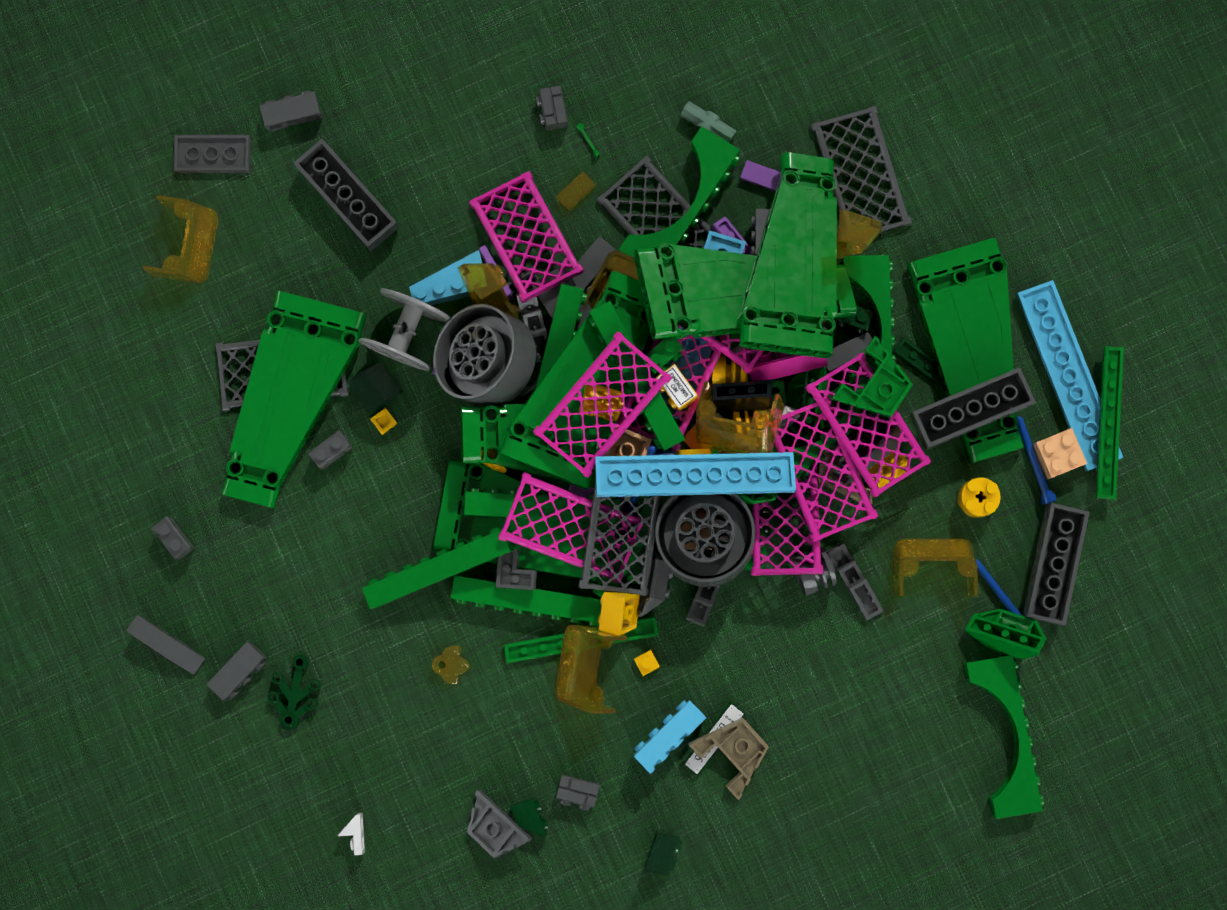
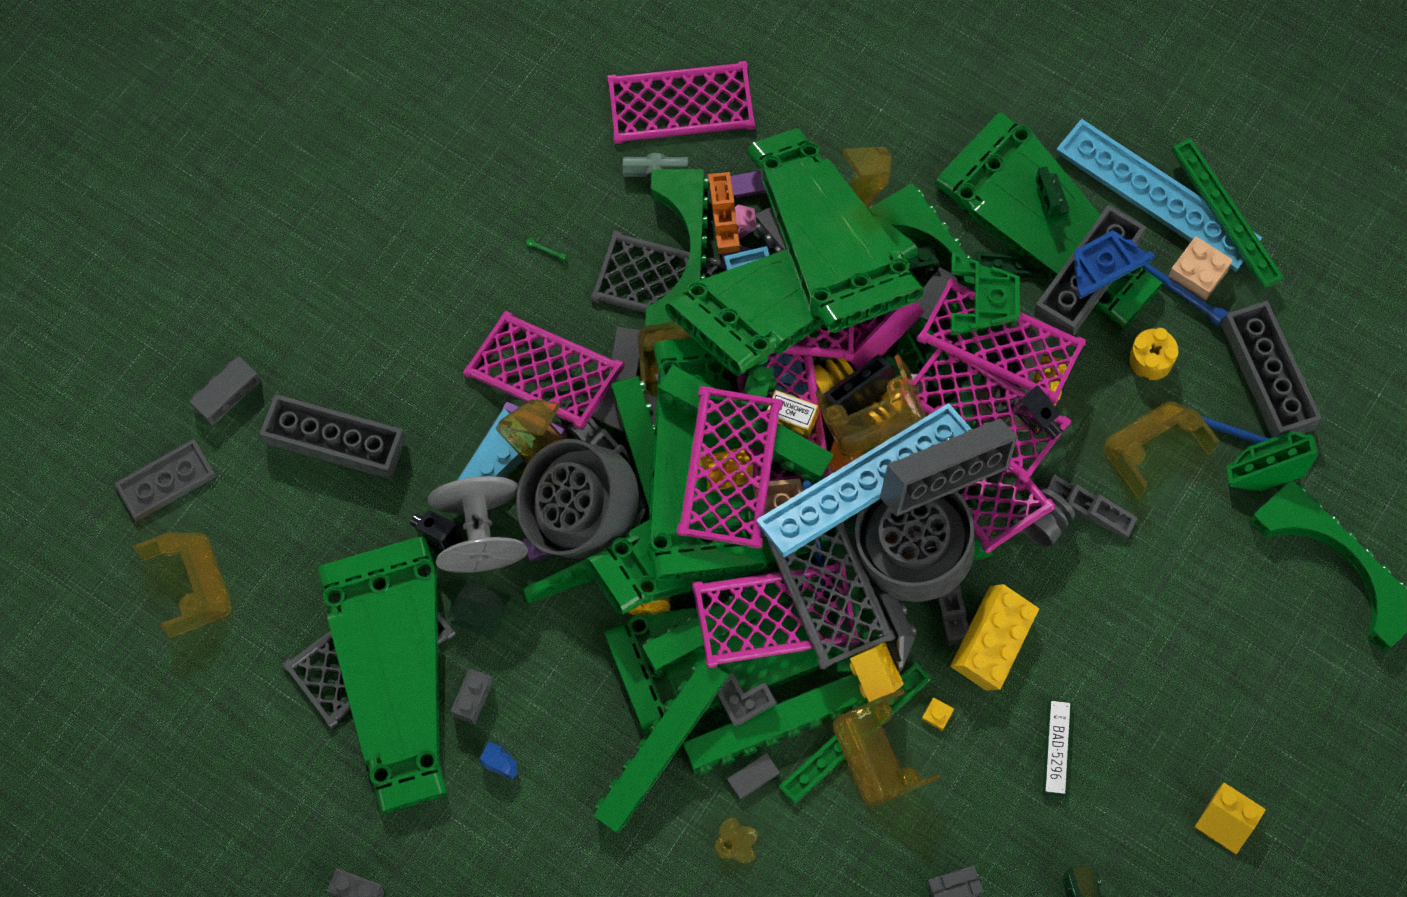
camera: 30 degrees left, 15 degrees down
(323, 507) = (498, 761): none -> blue rock
(377, 315) = (439, 531): none -> black torso
(383, 421) = (509, 636): yellow plate -> none
(437, 403) = (559, 582): none -> green wing
(490, 626) = (753, 776): none -> dark grey tile
(553, 108) = (492, 239): dark grey brick -> none
(575, 191) = (565, 303): clear yellow tile -> none
(669, 736) = (1010, 771): medium azure wedge -> none
(720, 636) = (994, 637): none -> yellow brick
(721, 31) = (694, 125): none -> dark pink door
(734, 192) = (724, 213): none -> orange slope
(740, 746) = (1091, 737): dark tan wing -> none
(745, 208) = (745, 220): none -> bright pink bracket
(756, 503) = (947, 466): none -> dark grey brick
(799, 863) = (1229, 818): none -> yellow slope
(852, 491) = (1038, 412): none -> black torso
(872, 111) = (806, 69): dark grey door -> none
(985, 412) = (1106, 261): none -> blue wing
(987, 329) = (1051, 193): none -> dark green bracket

